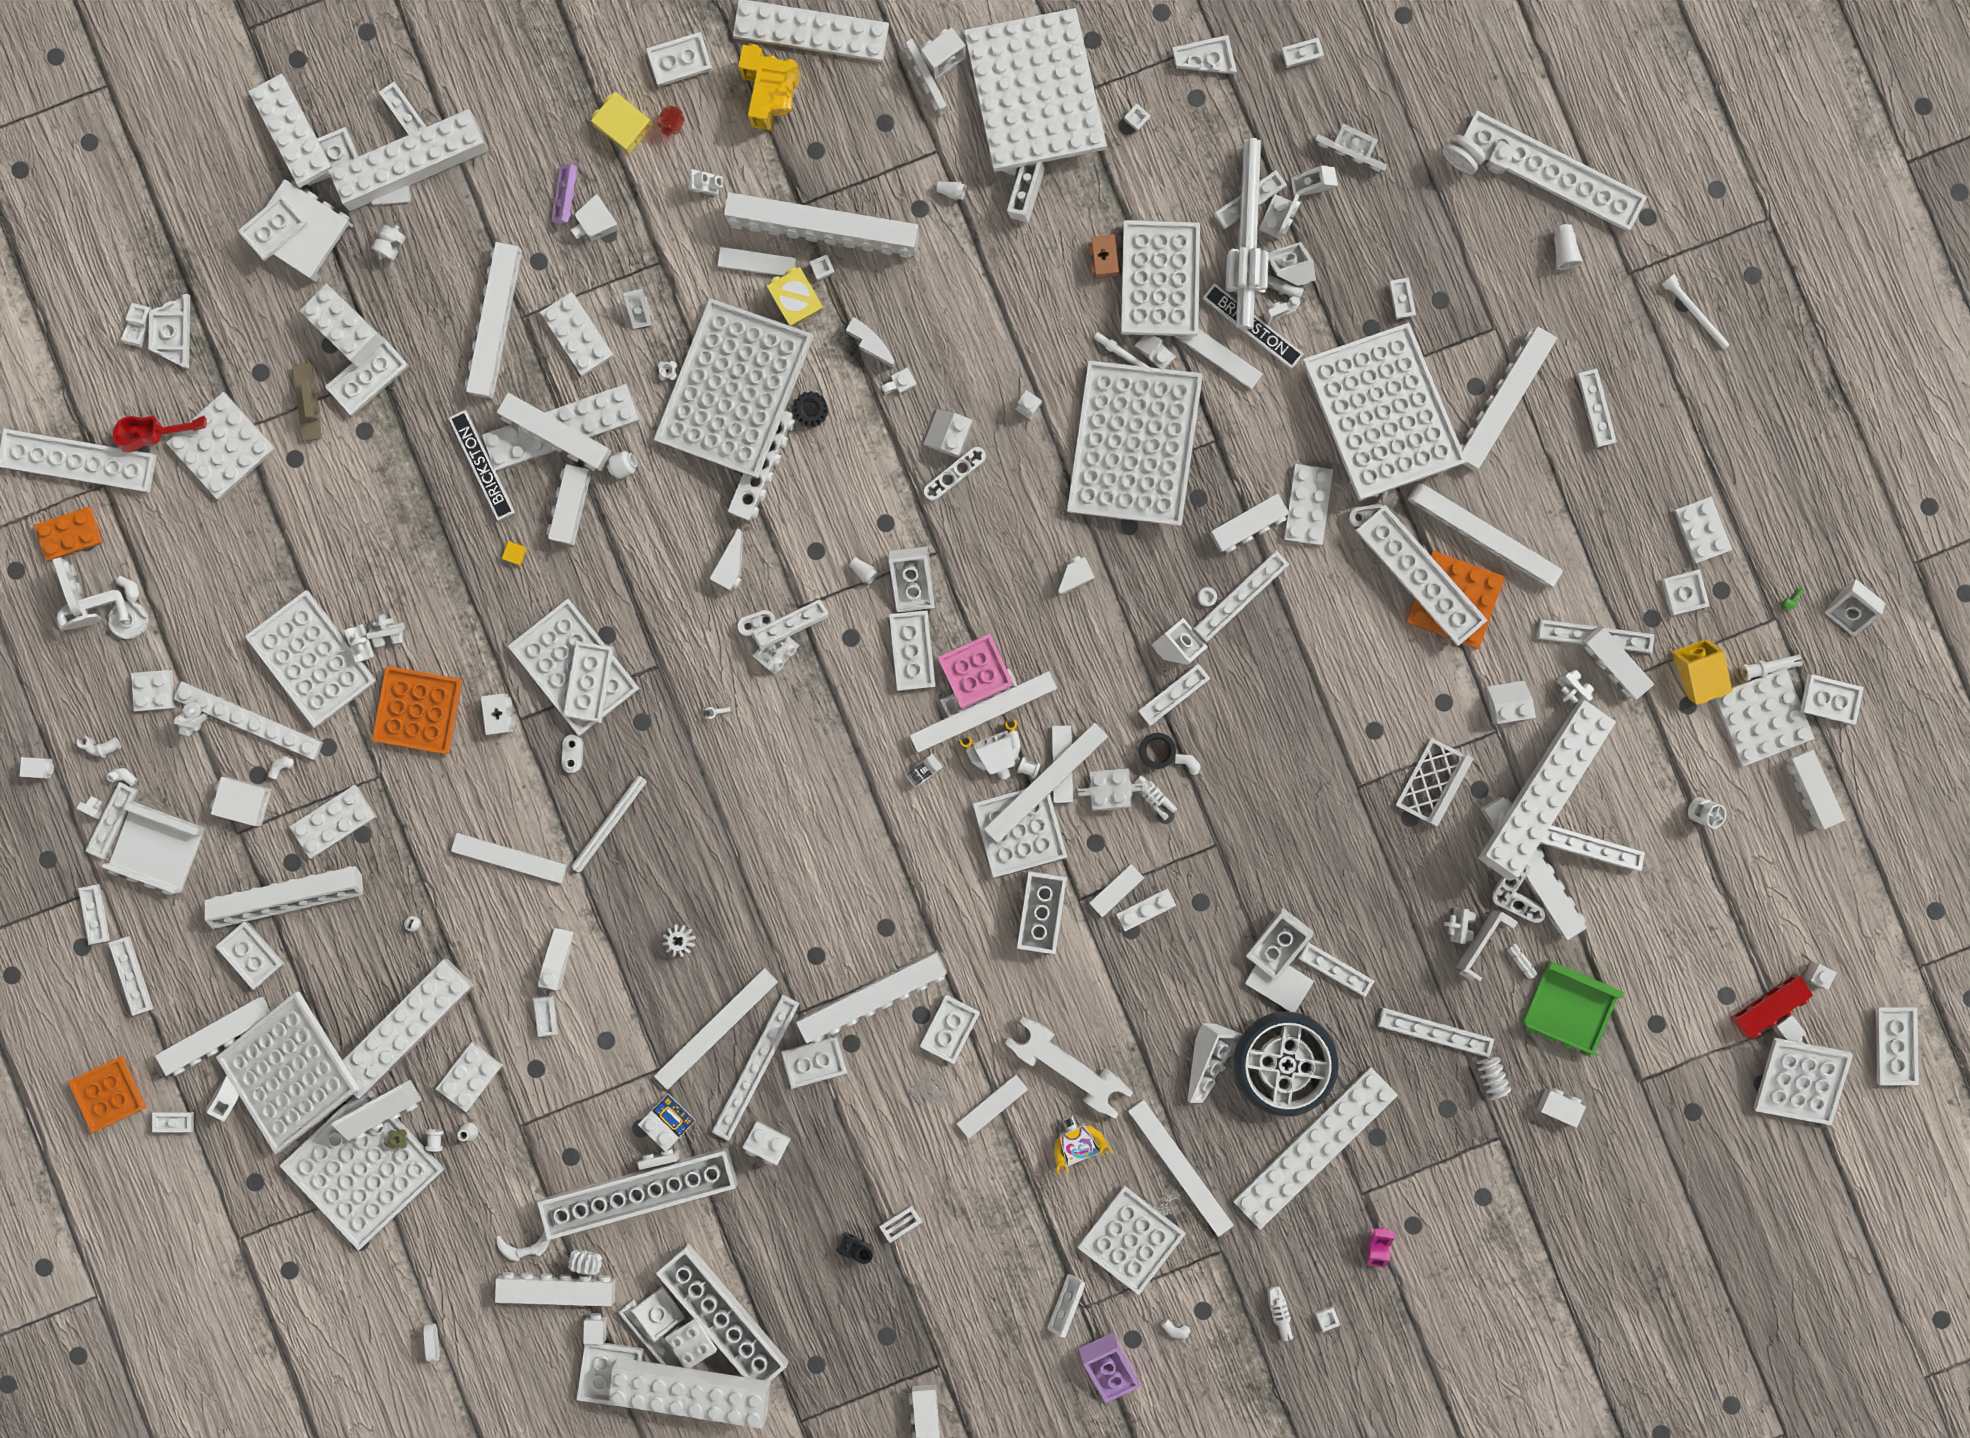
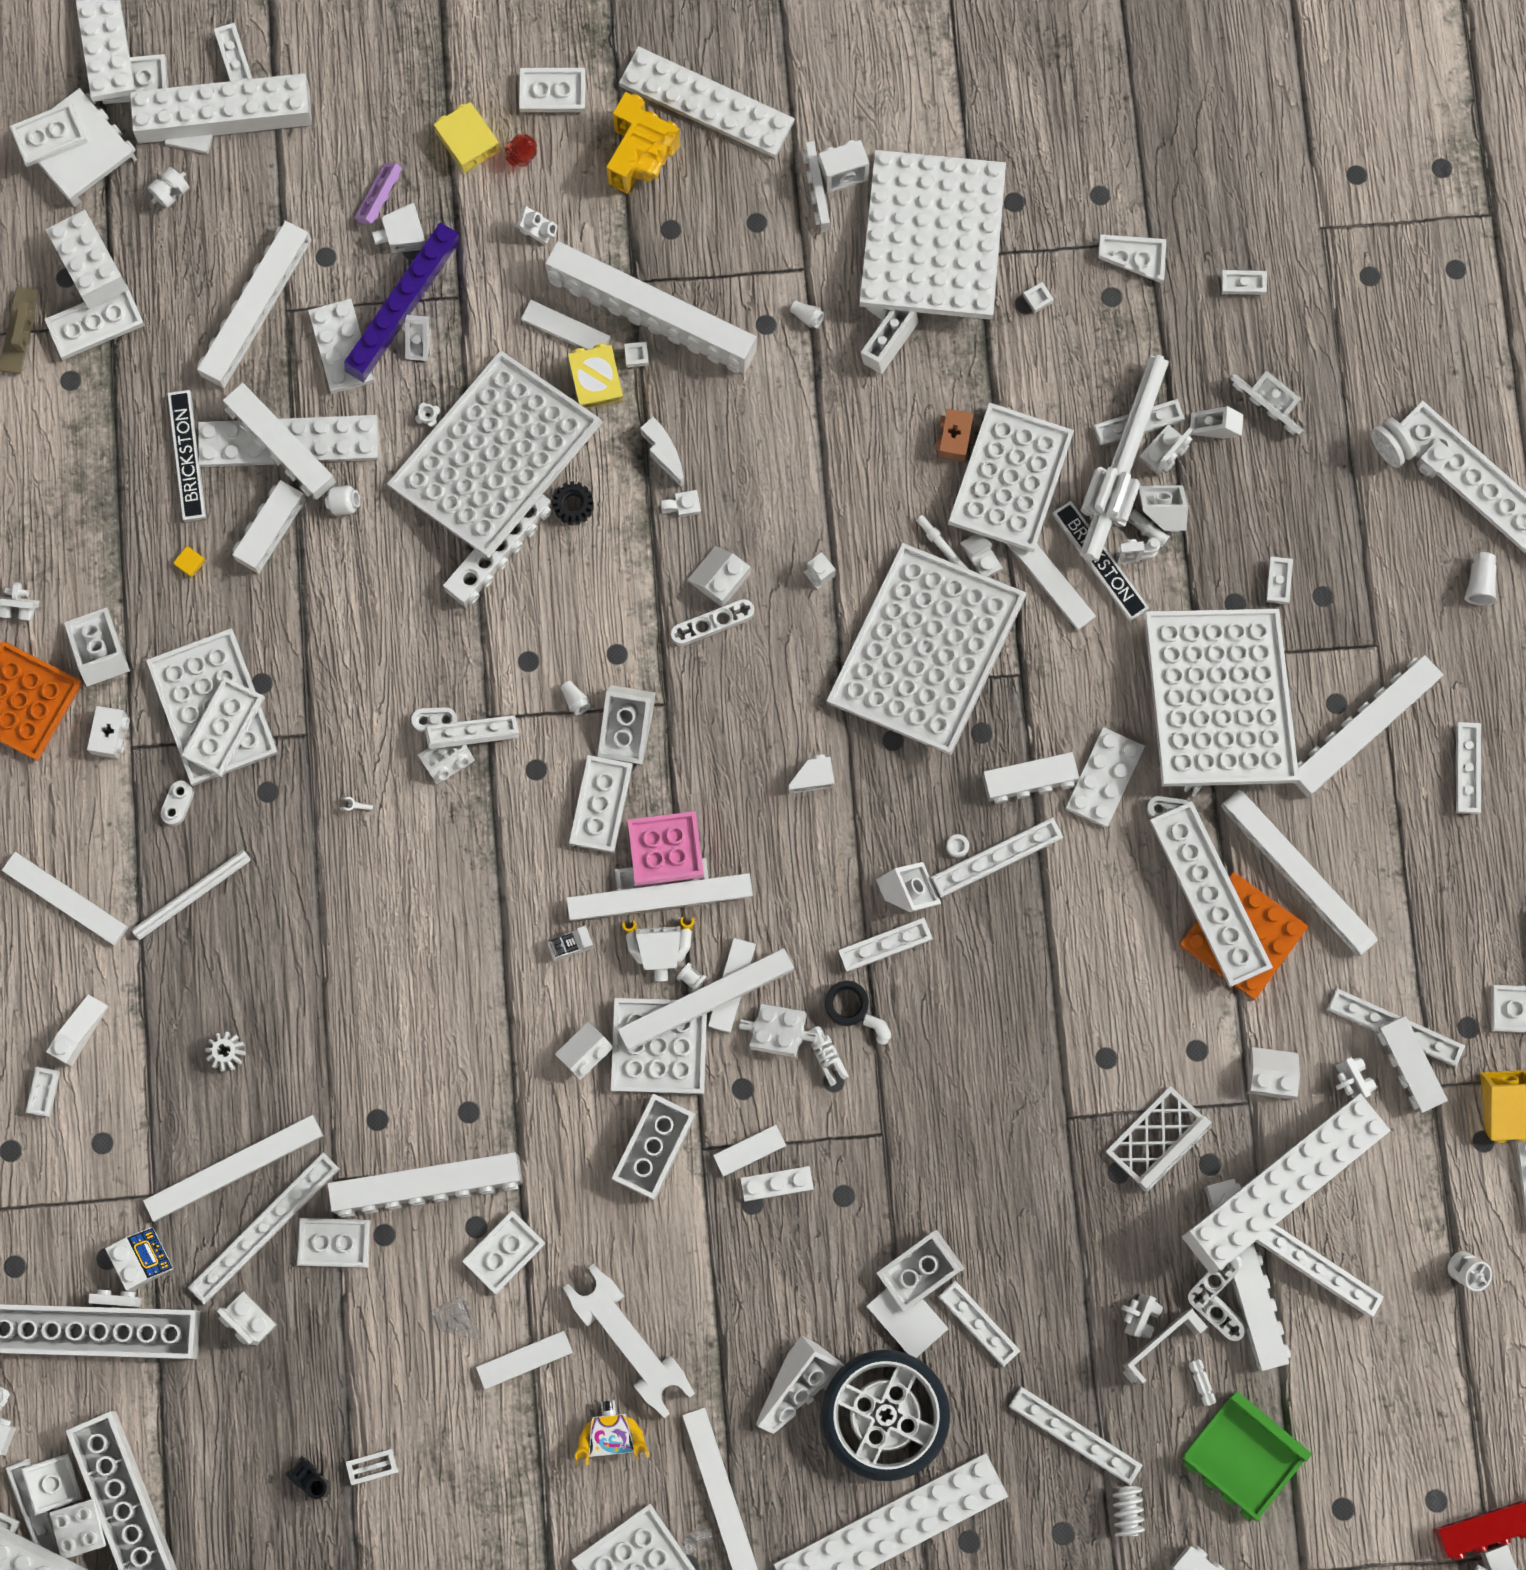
camera: 15 degrees right, 10 degrees down
(463, 647) = (96, 647): none -> white slope
(615, 282) = (401, 302): none -> dark purple brick
(730, 565) = (425, 647): white slope -> none
(962, 853) = (584, 1050): none -> white brick

